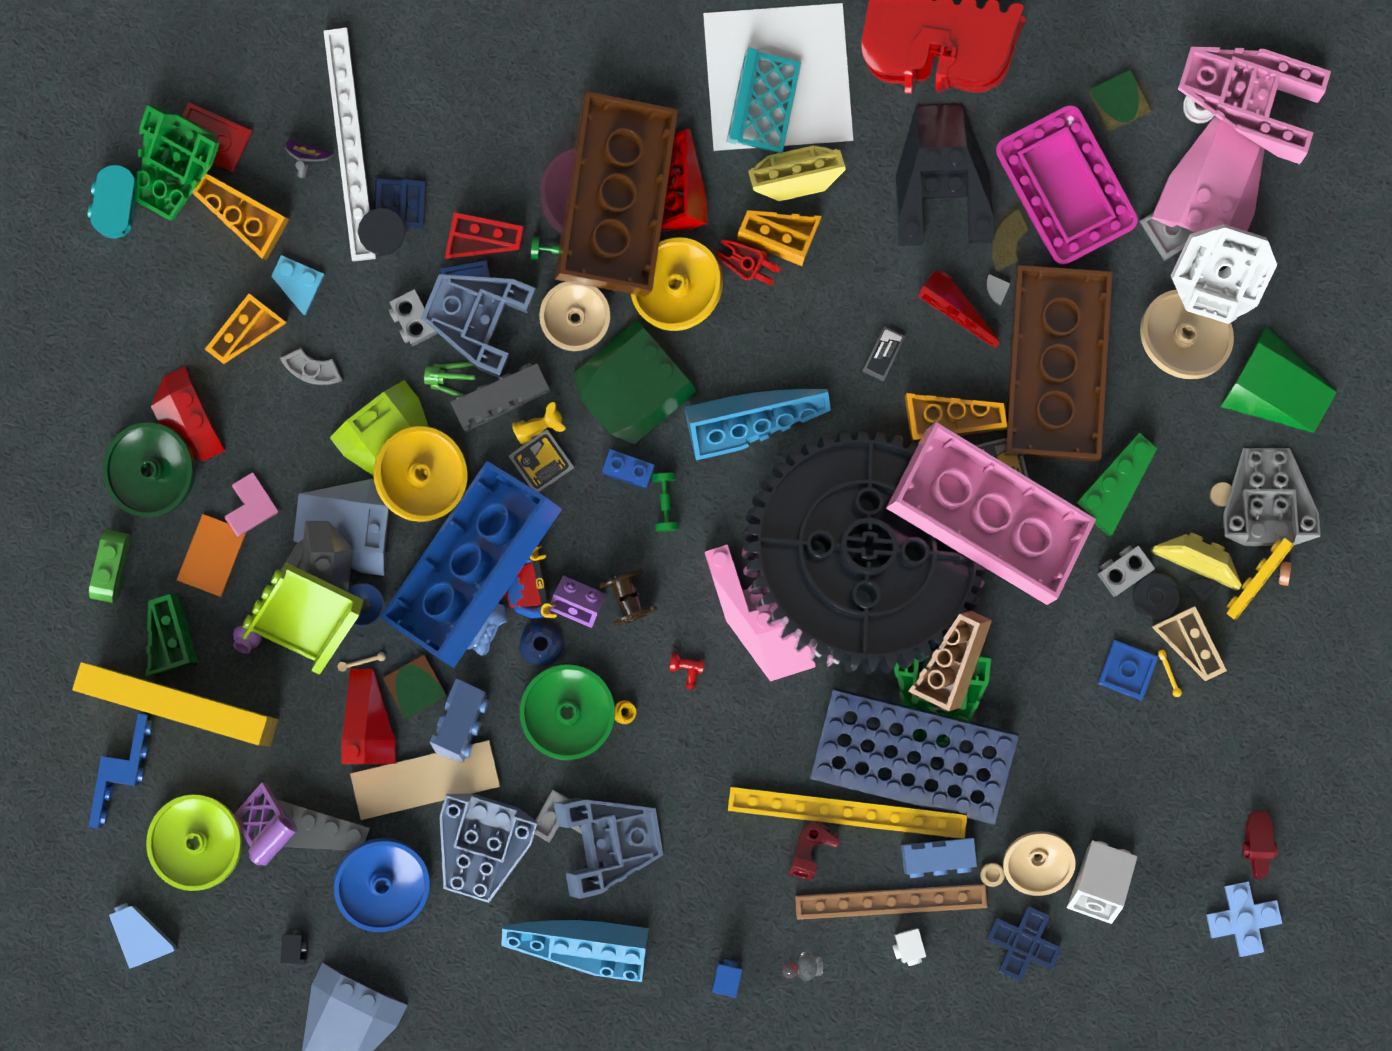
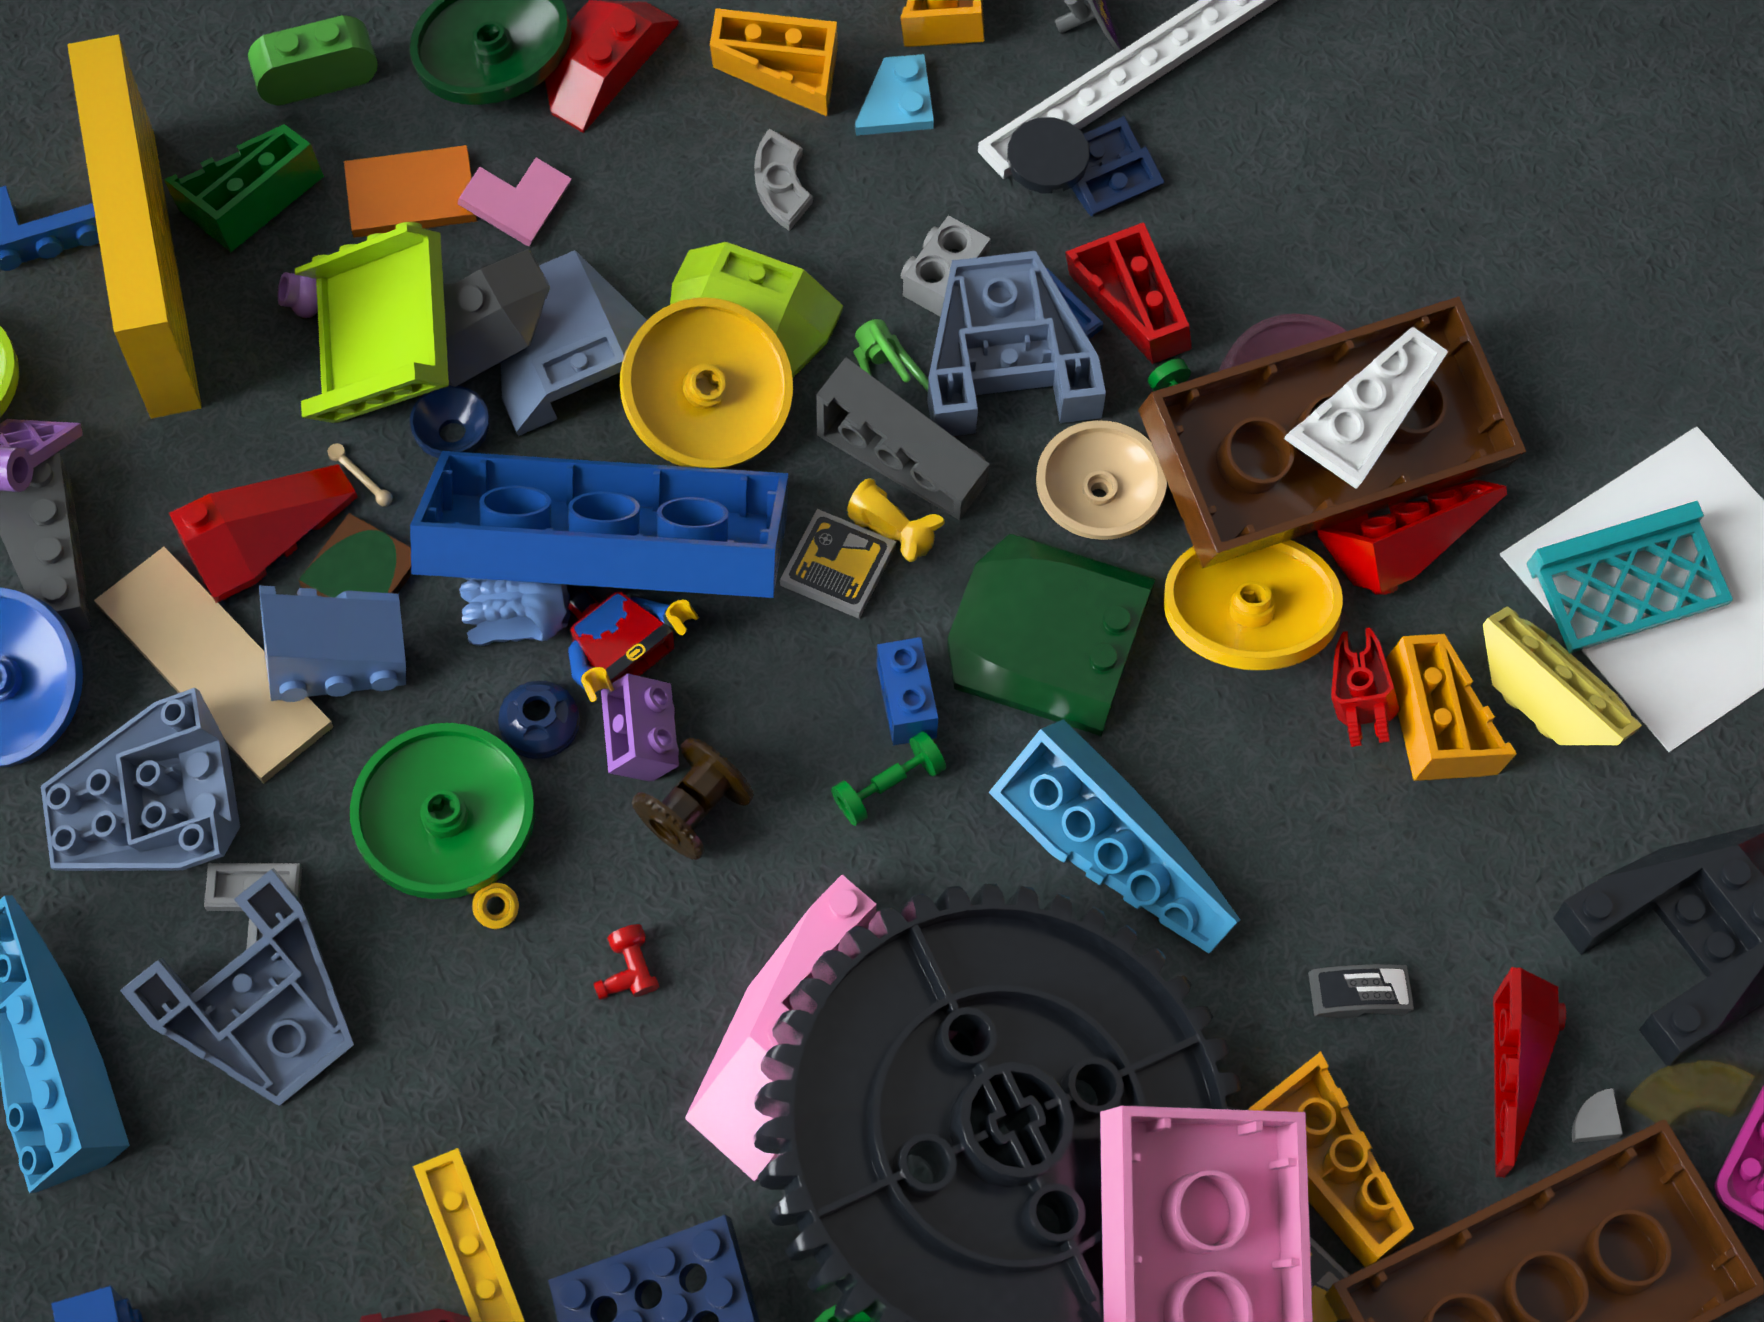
camera: 60 degrees right, 20 degrees down
(623, 178) = (1361, 418): none -> white wing

